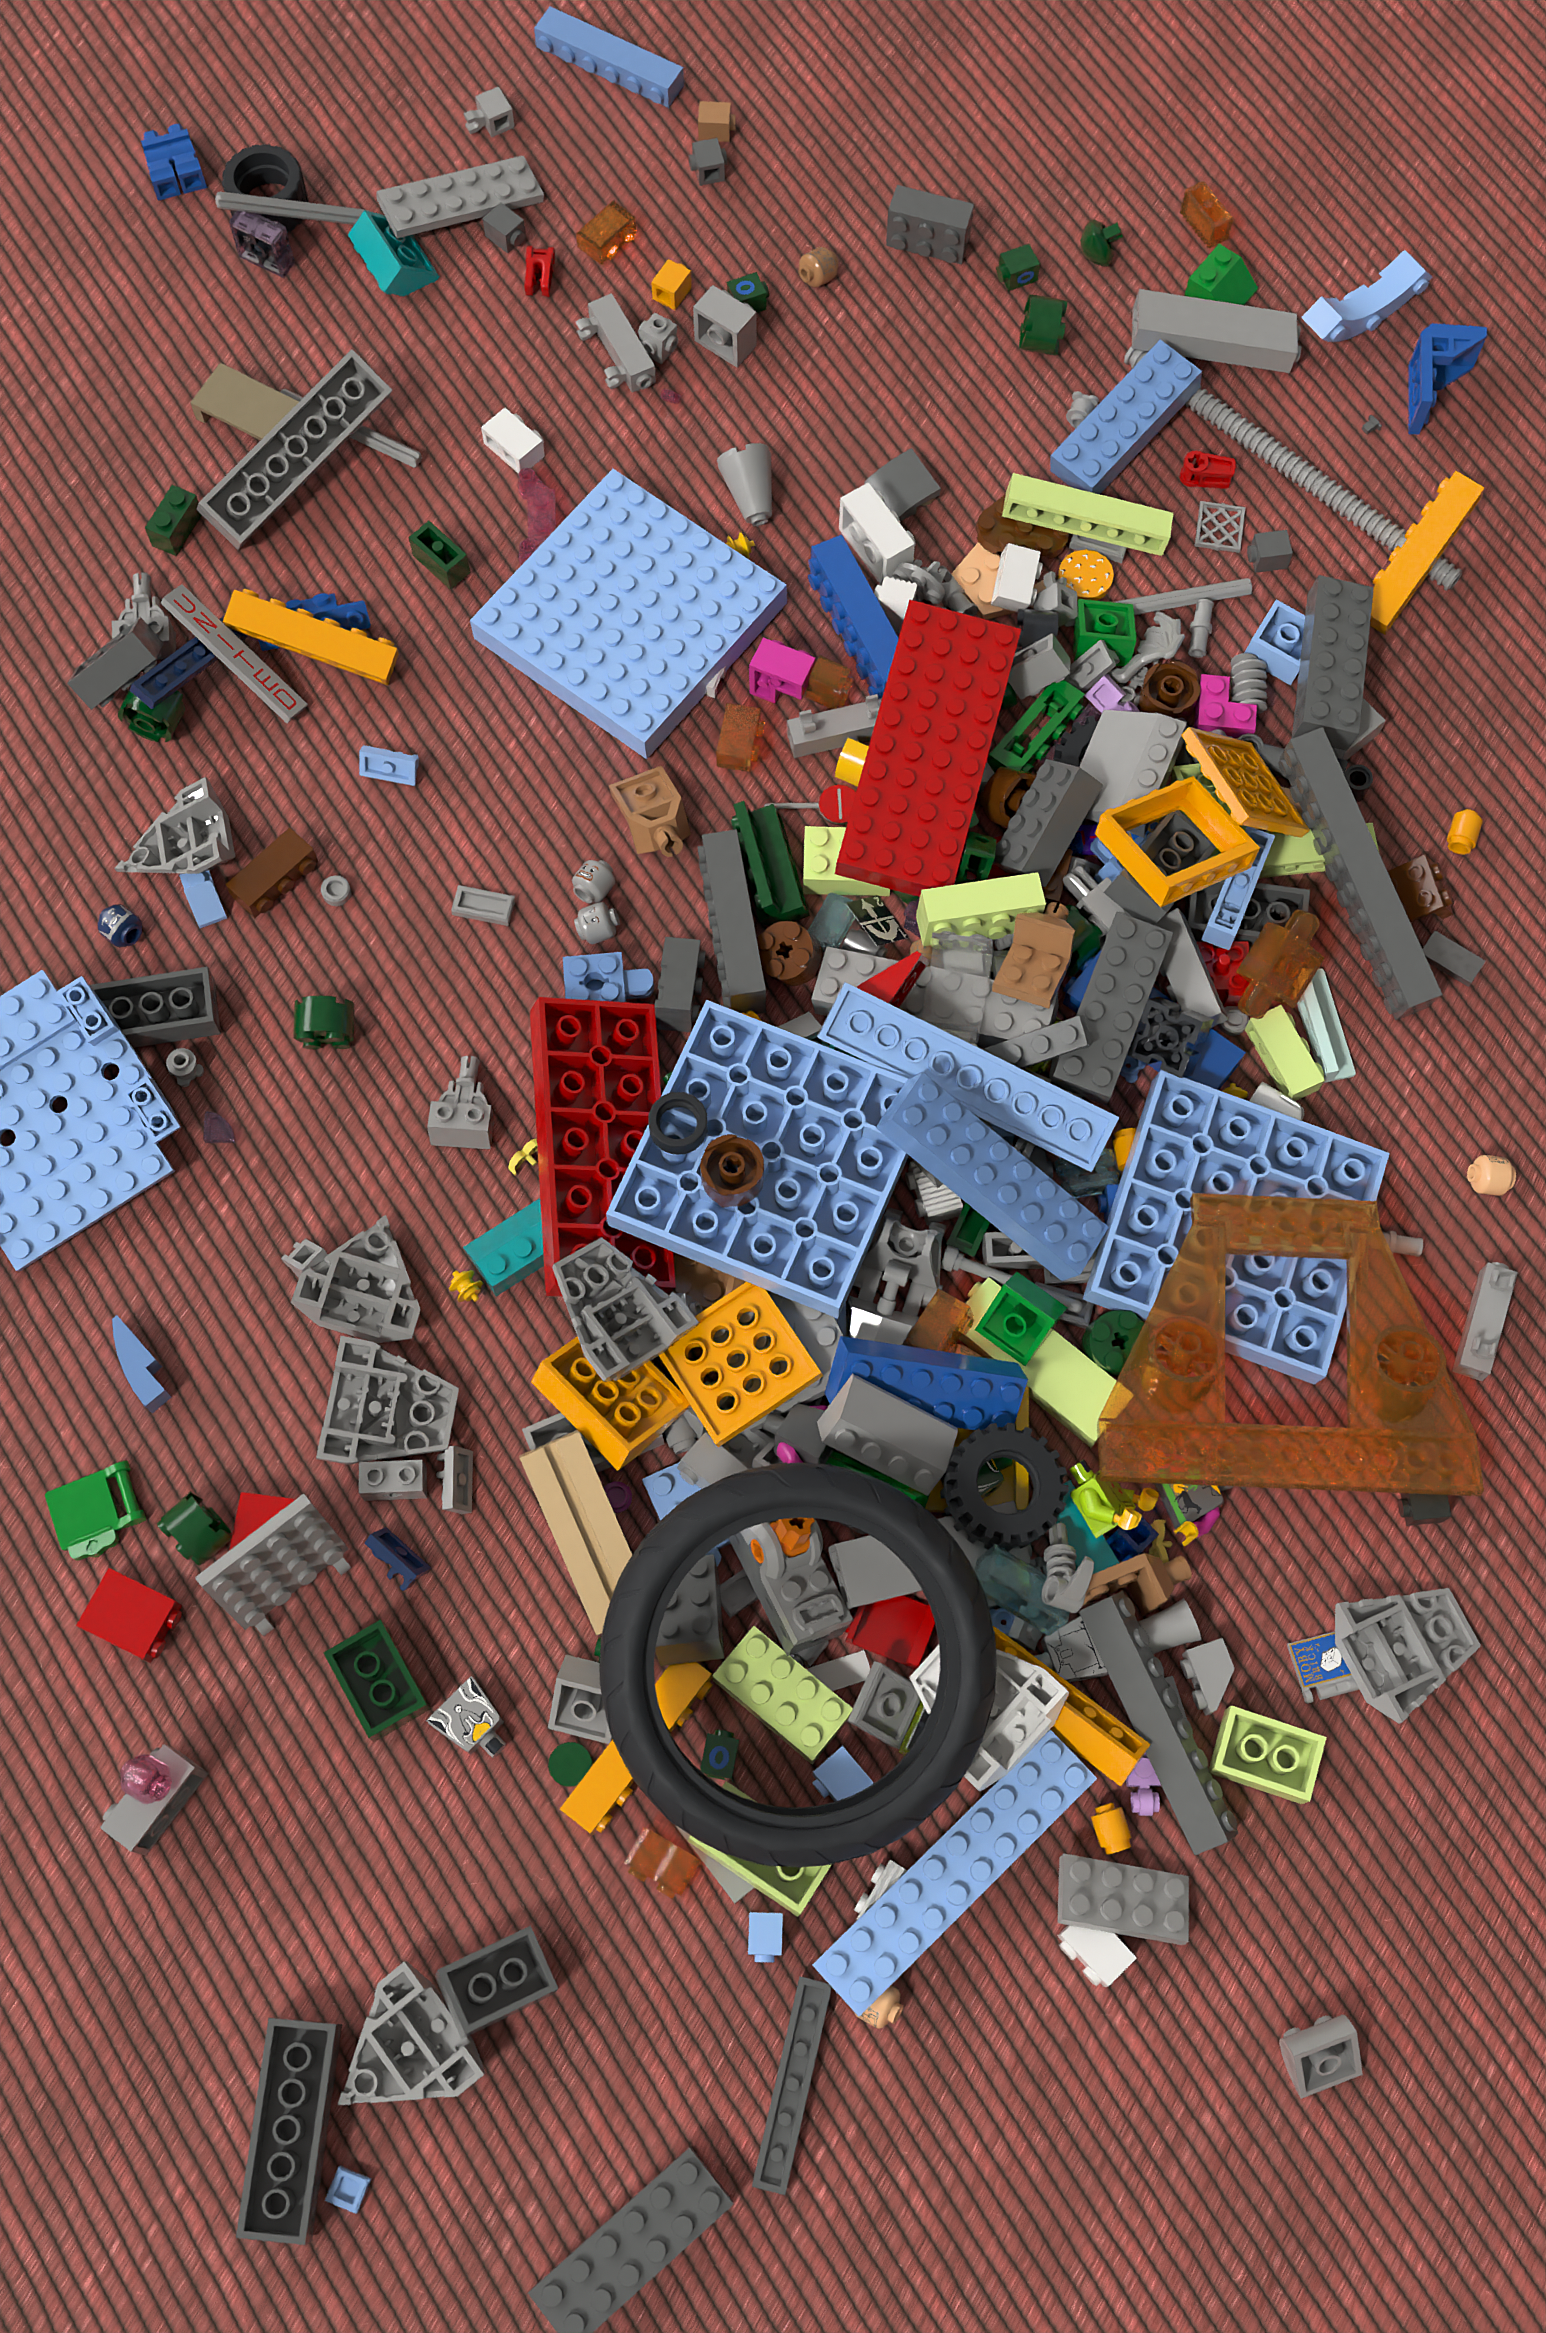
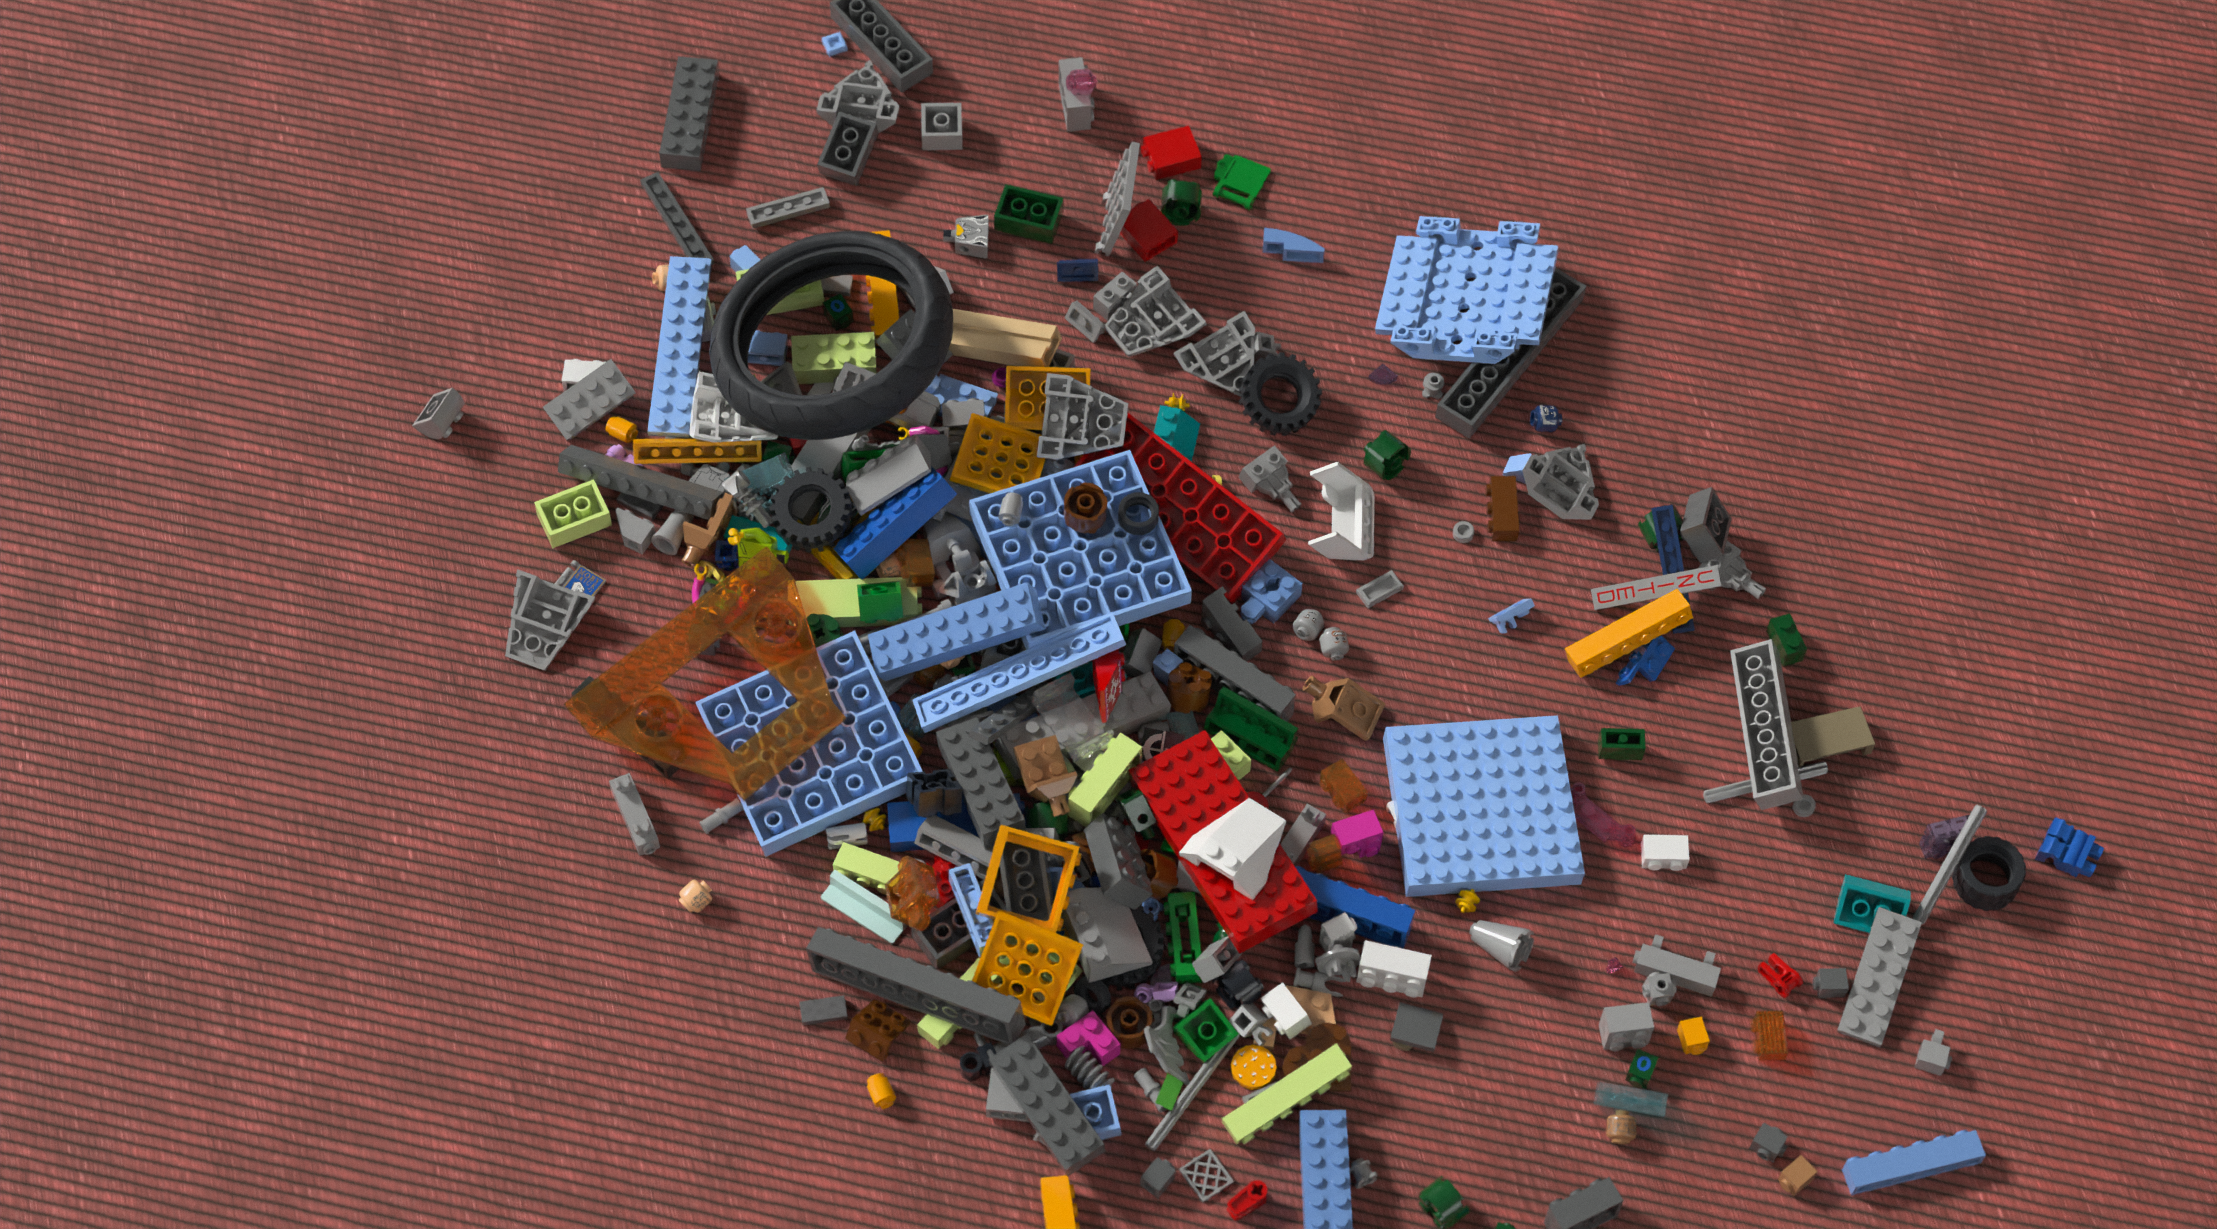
camera: 135 degrees right, 10 degrees down
(347, 1153) = (1296, 374): none -> black tyre
(351, 1910) = (941, 126): none -> light grey brick
(439, 992) = (1351, 514): none -> white windscreen
(640, 1973) = (787, 207): none -> light grey plate
(783, 997) = (1164, 664): none -> light blue brick
(787, 275) = (1630, 1099): none -> clear light blue brick
(810, 1245) = (1011, 509): none -> light grey brick
(933, 708) = (1239, 845): none -> white wedge
(1194, 607) = (1169, 1092): none -> bright green sticker

